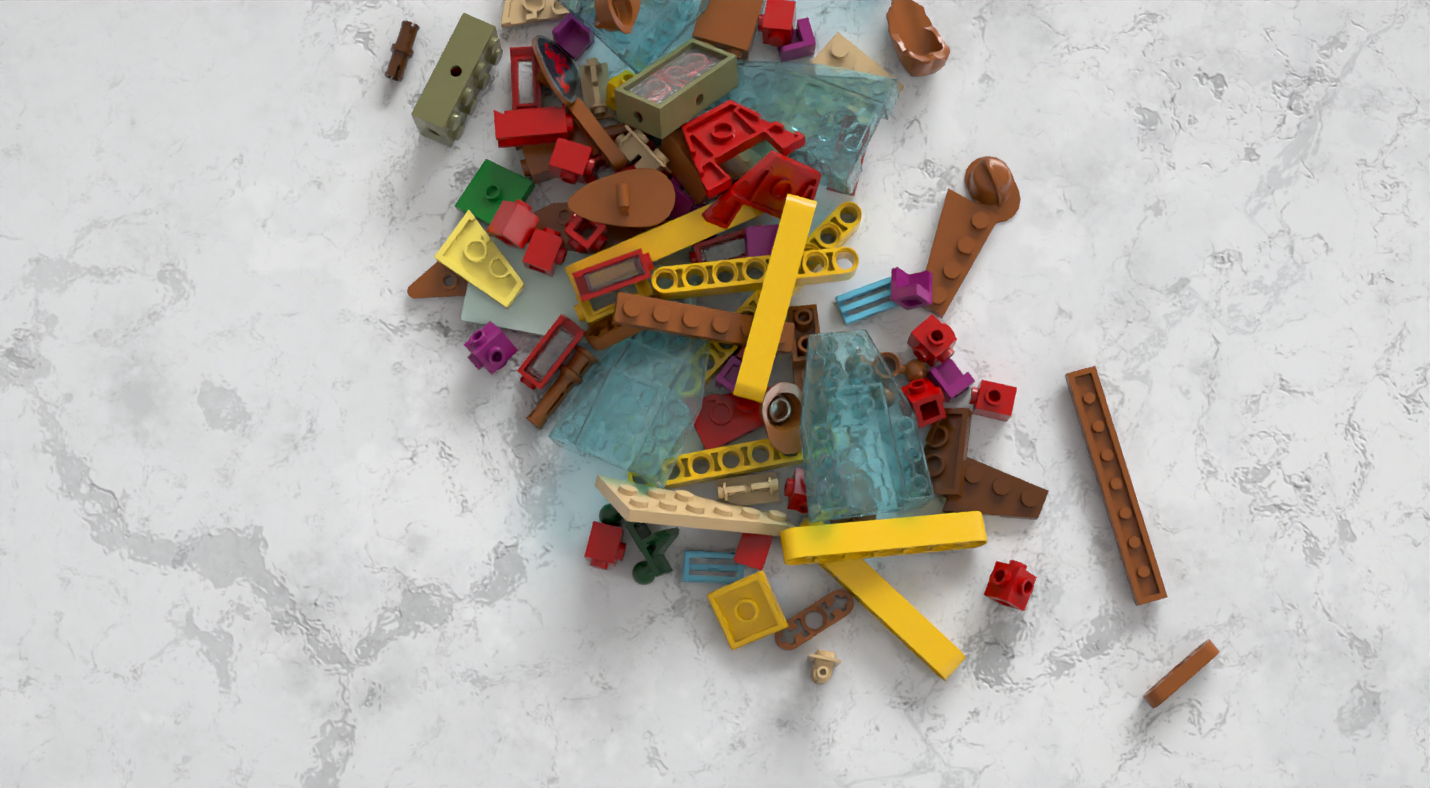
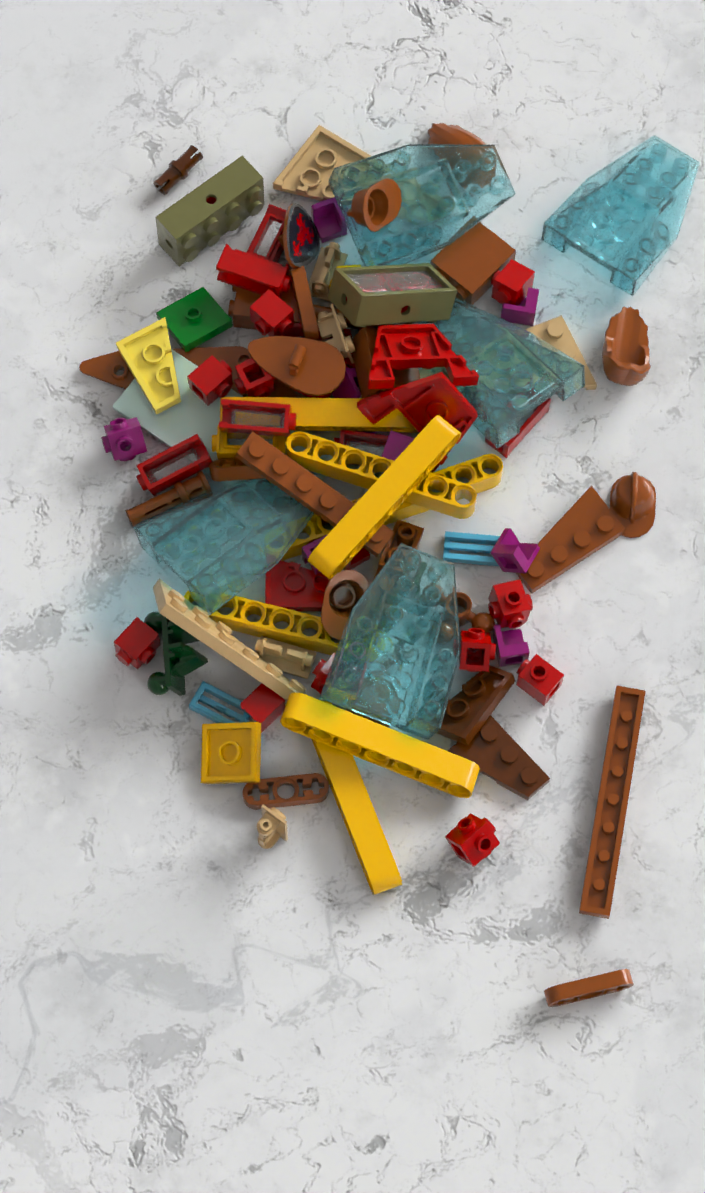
camera: 25 degrees right, 10 degrees down
(513, 223) = (196, 344): red brick -> none

